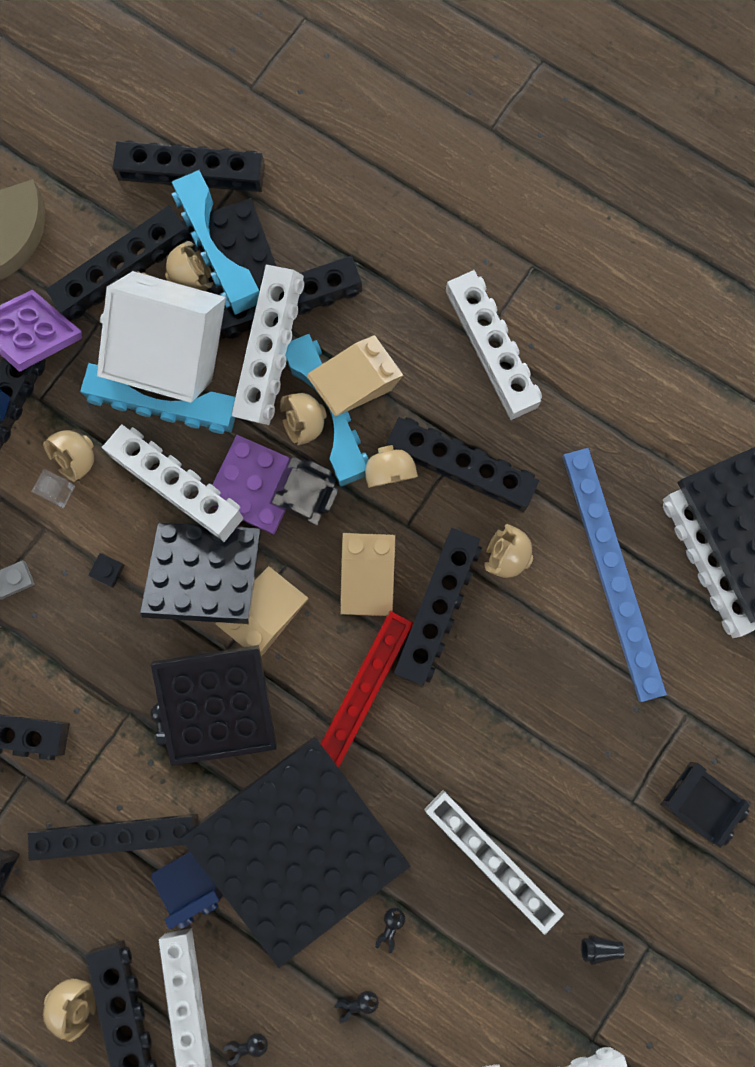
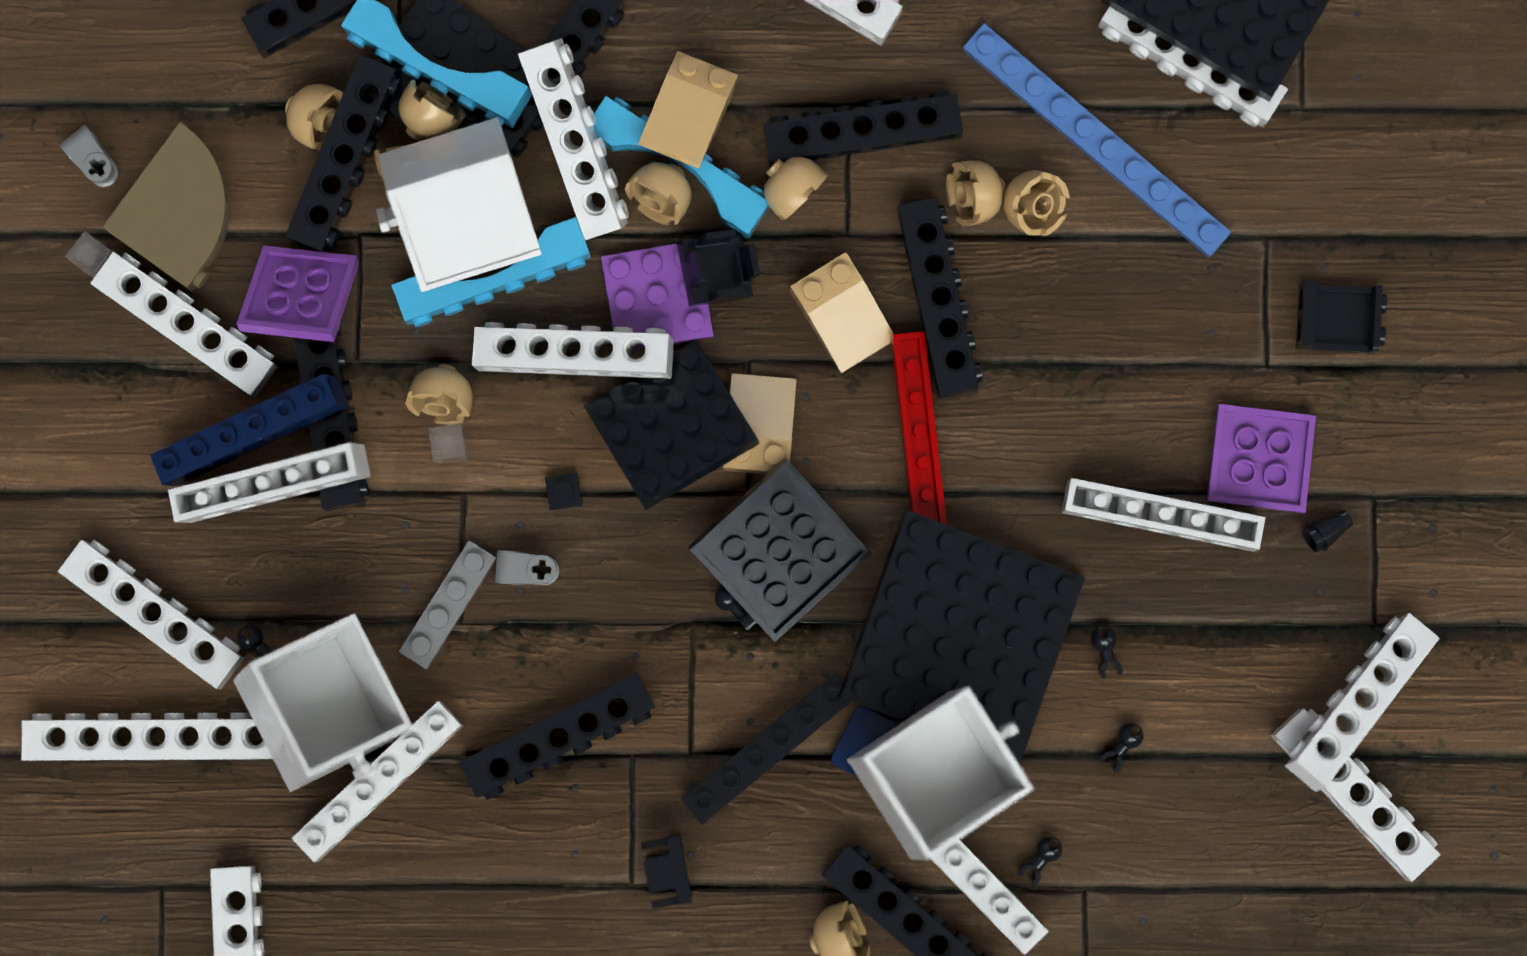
camera: 40 degrees left, 5 degrees up
(42, 601) = (519, 568): none -> light grey piece
(115, 223) = (311, 113): none -> tan cylinder
(205, 949) = (941, 773): none -> white piece
(545, 586) = (1036, 202): none -> tan cylinder
(587, 866) = (1261, 458): none -> medium lavender plate

